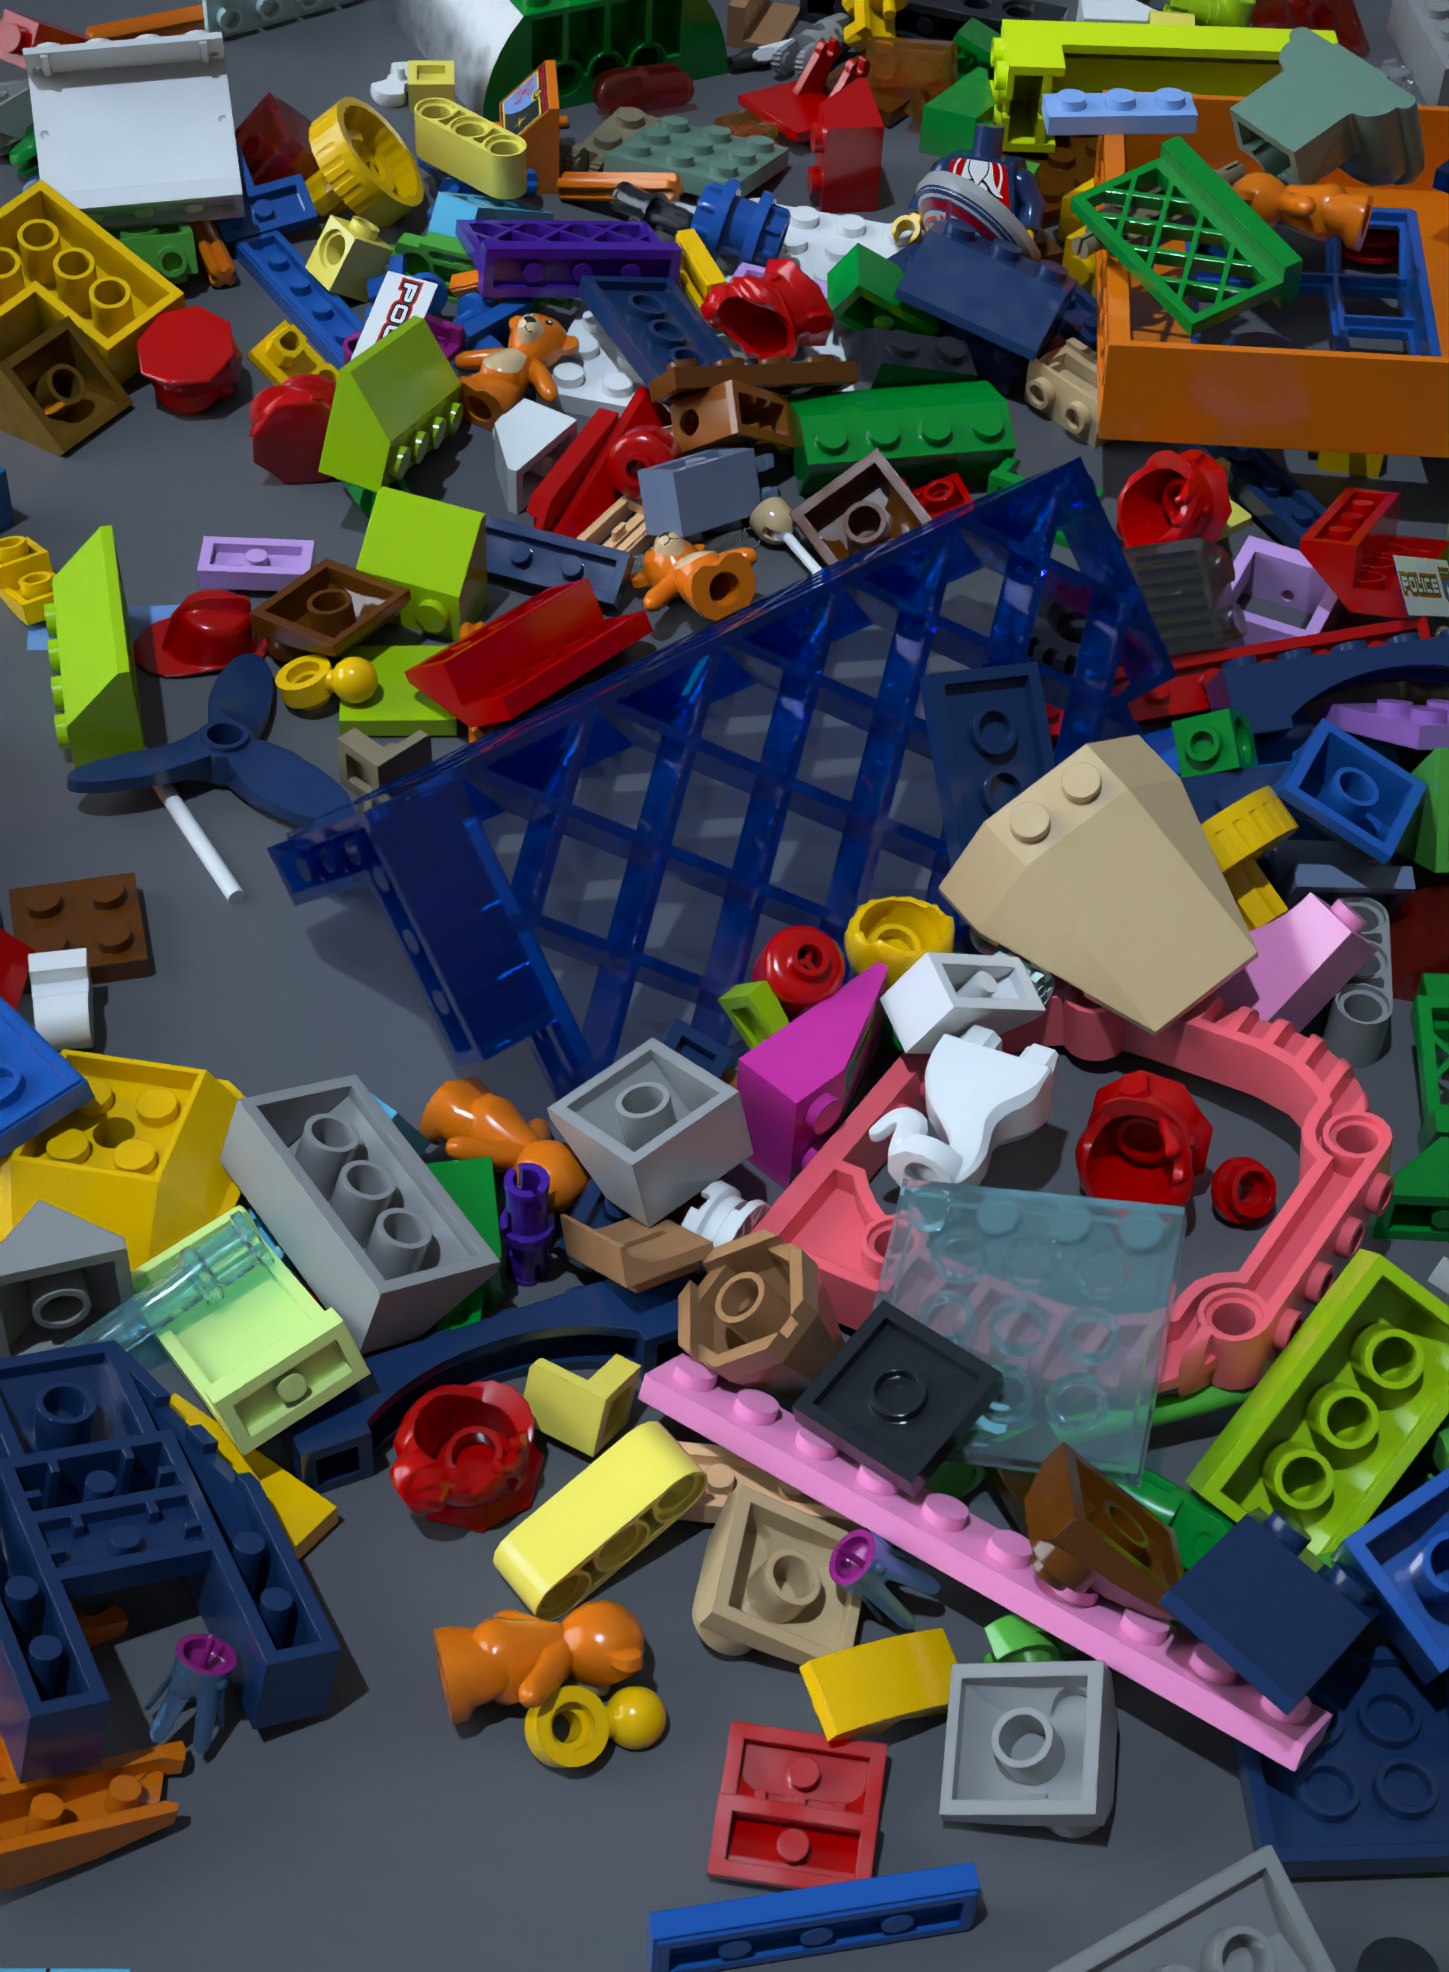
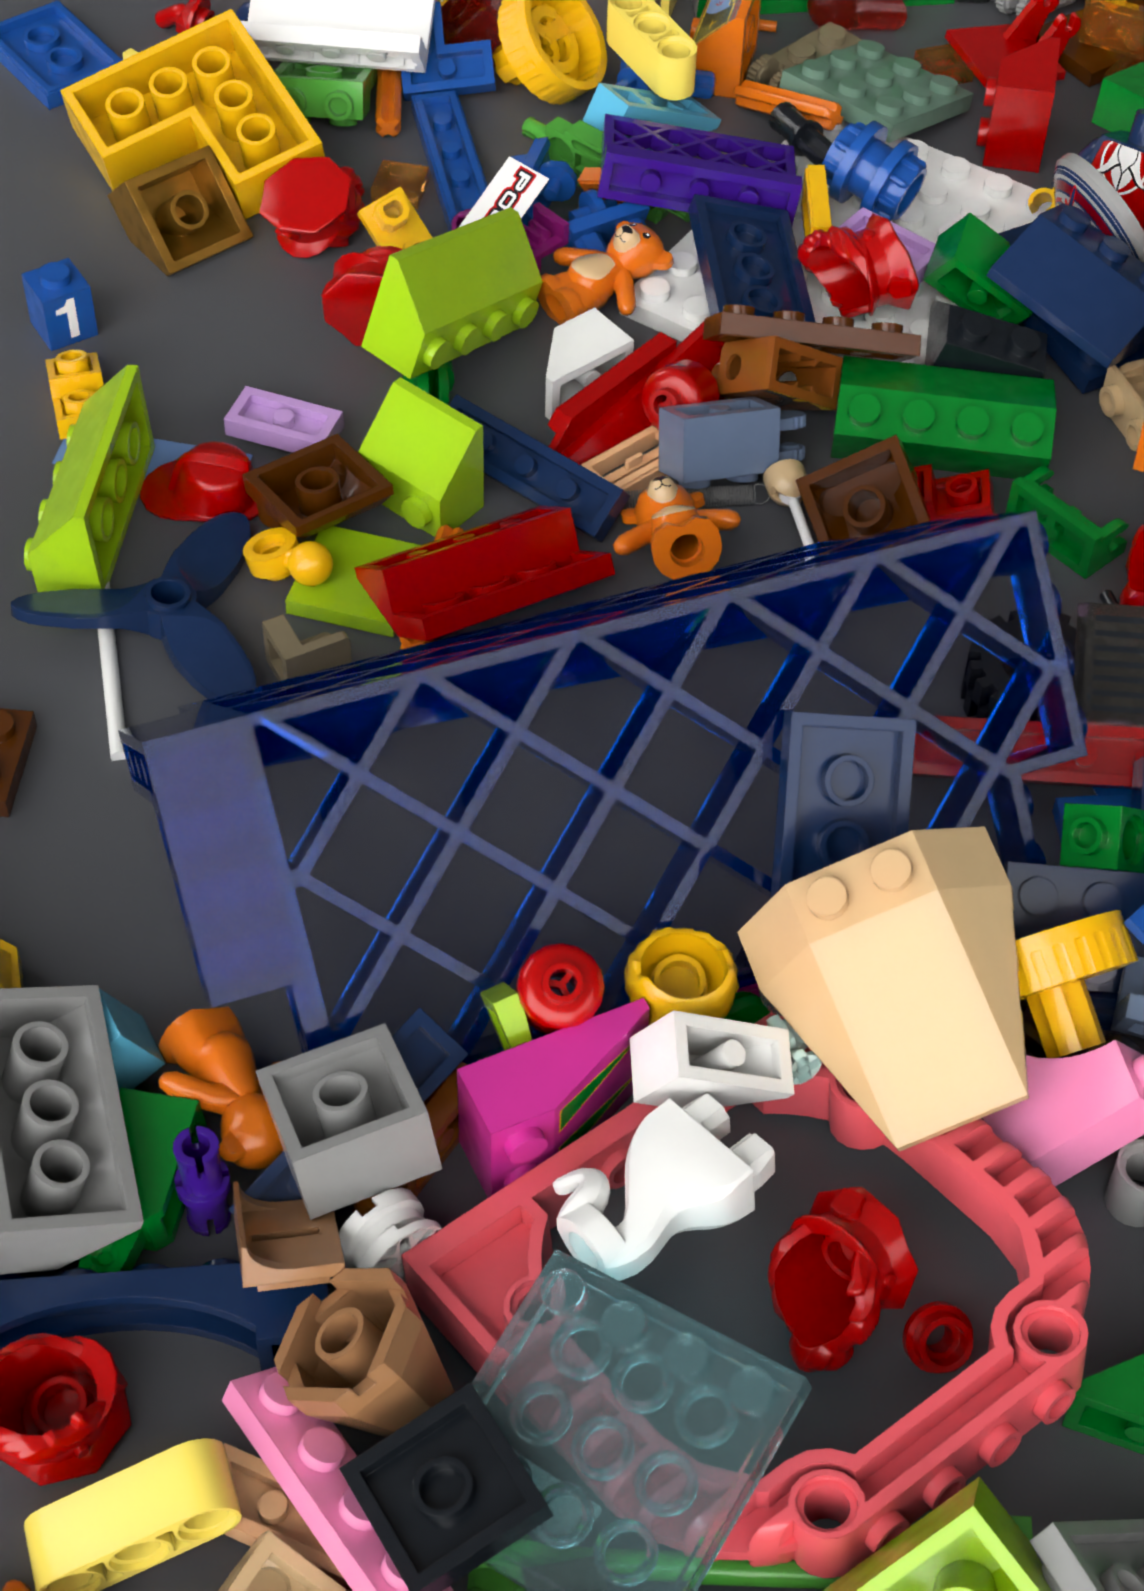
camera: 20 degrees right, 5 degrees up
(256, 322) = (394, 174): none -> clear orange tile
(348, 256) = (499, 129): light yellow brick -> none
(578, 1409) = (175, 1386): light yellow panel -> none

